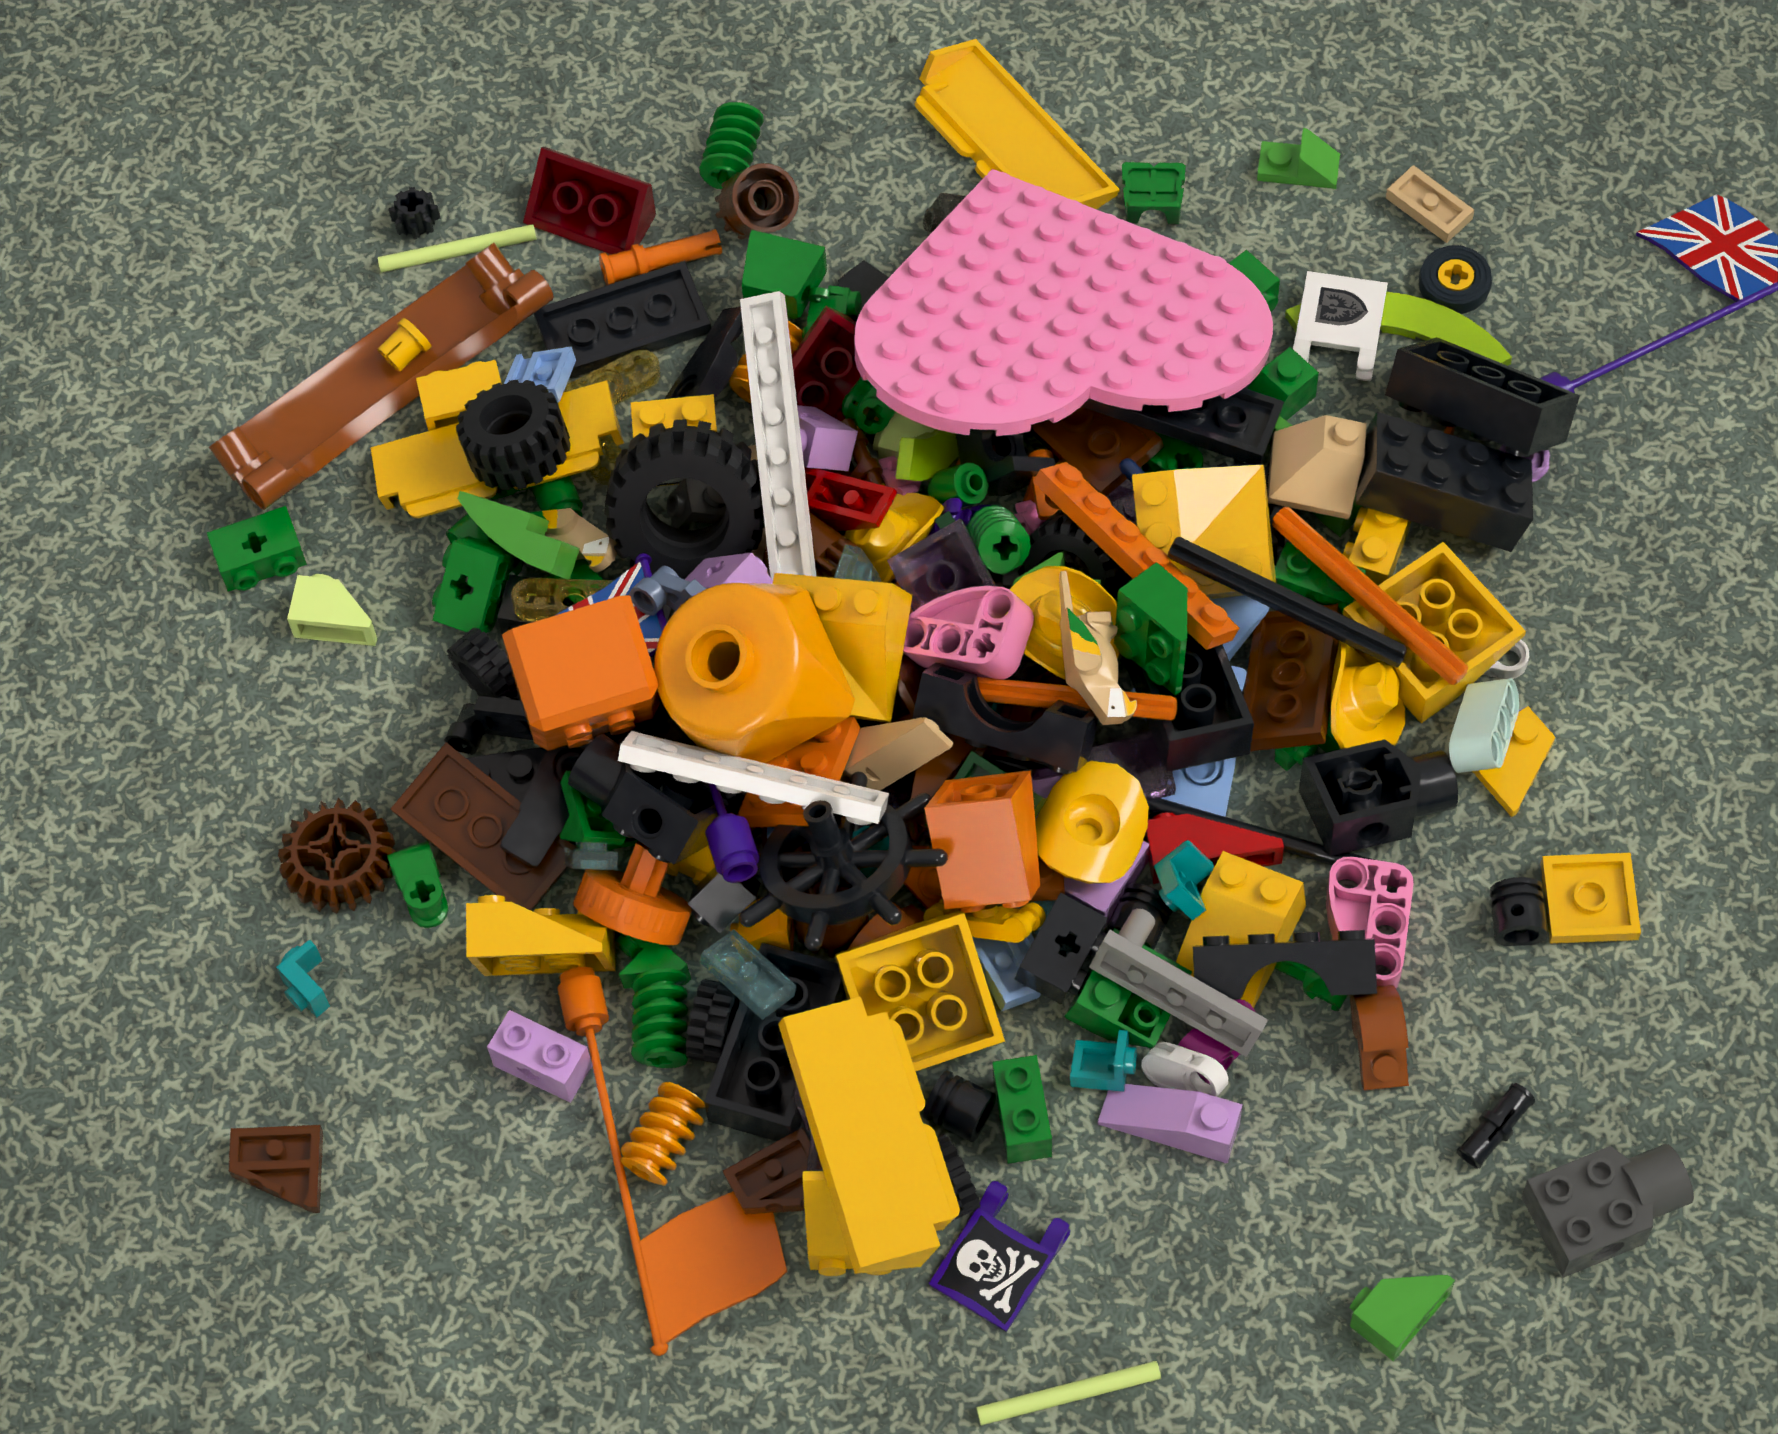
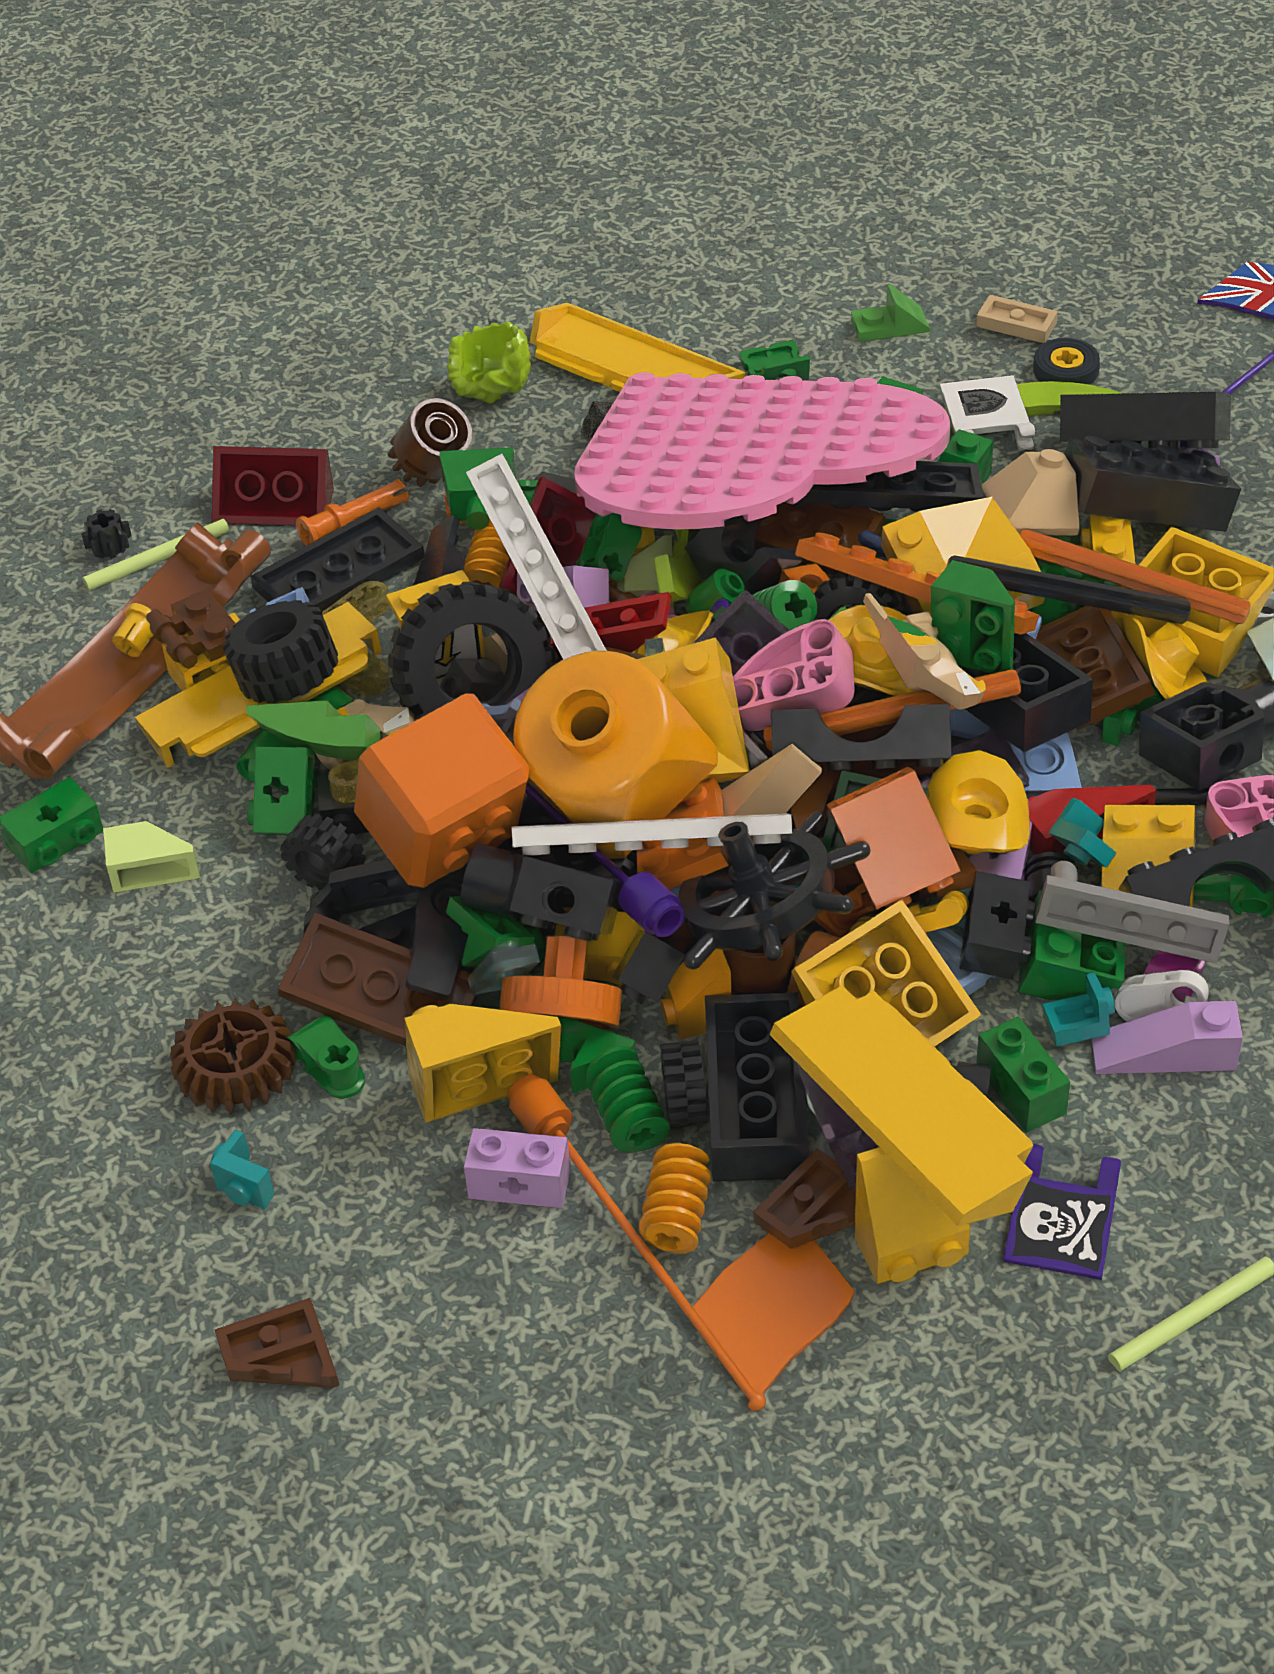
camera: 20 degrees left, 15 degrees down
(462, 366) = (198, 617): none -> reddish brown plate
(730, 142) = (382, 414): green piece -> none
(748, 974) = (708, 1019): clear light blue plate -> none
(856, 108) = (489, 362): none -> lime hair

